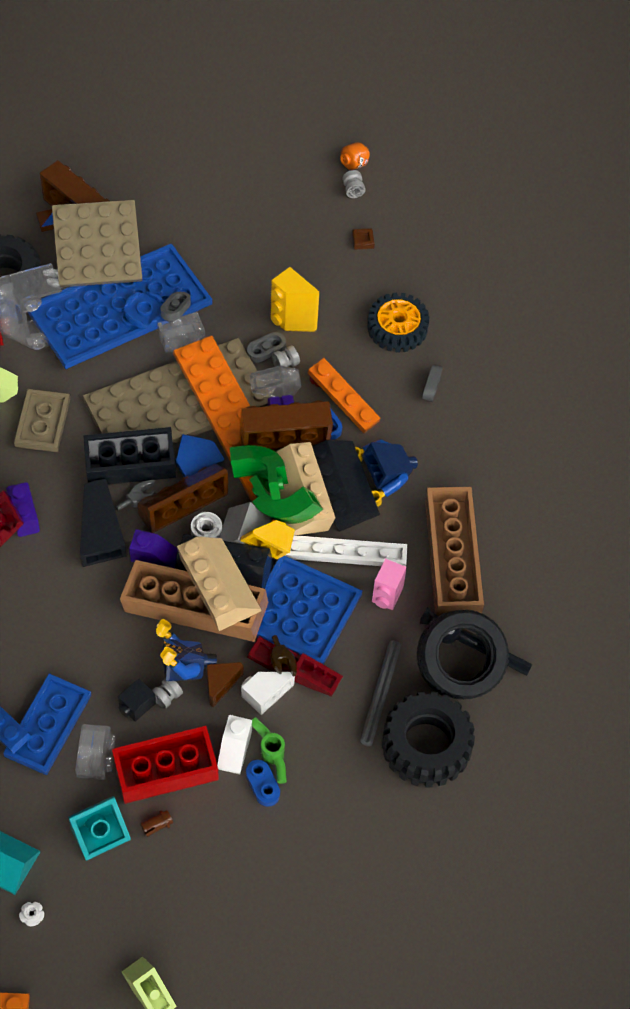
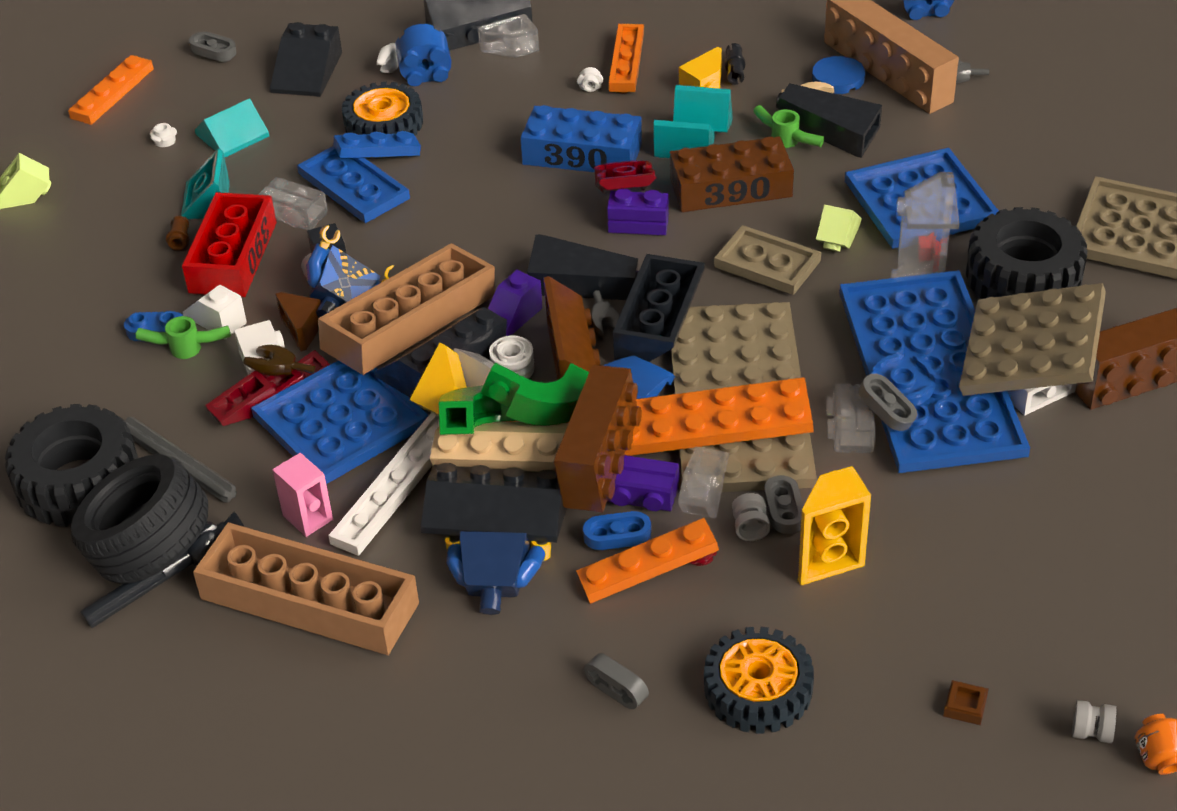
camera: 120 degrees right, 15 degrees down
(218, 581) = (398, 298): tan slope -> none

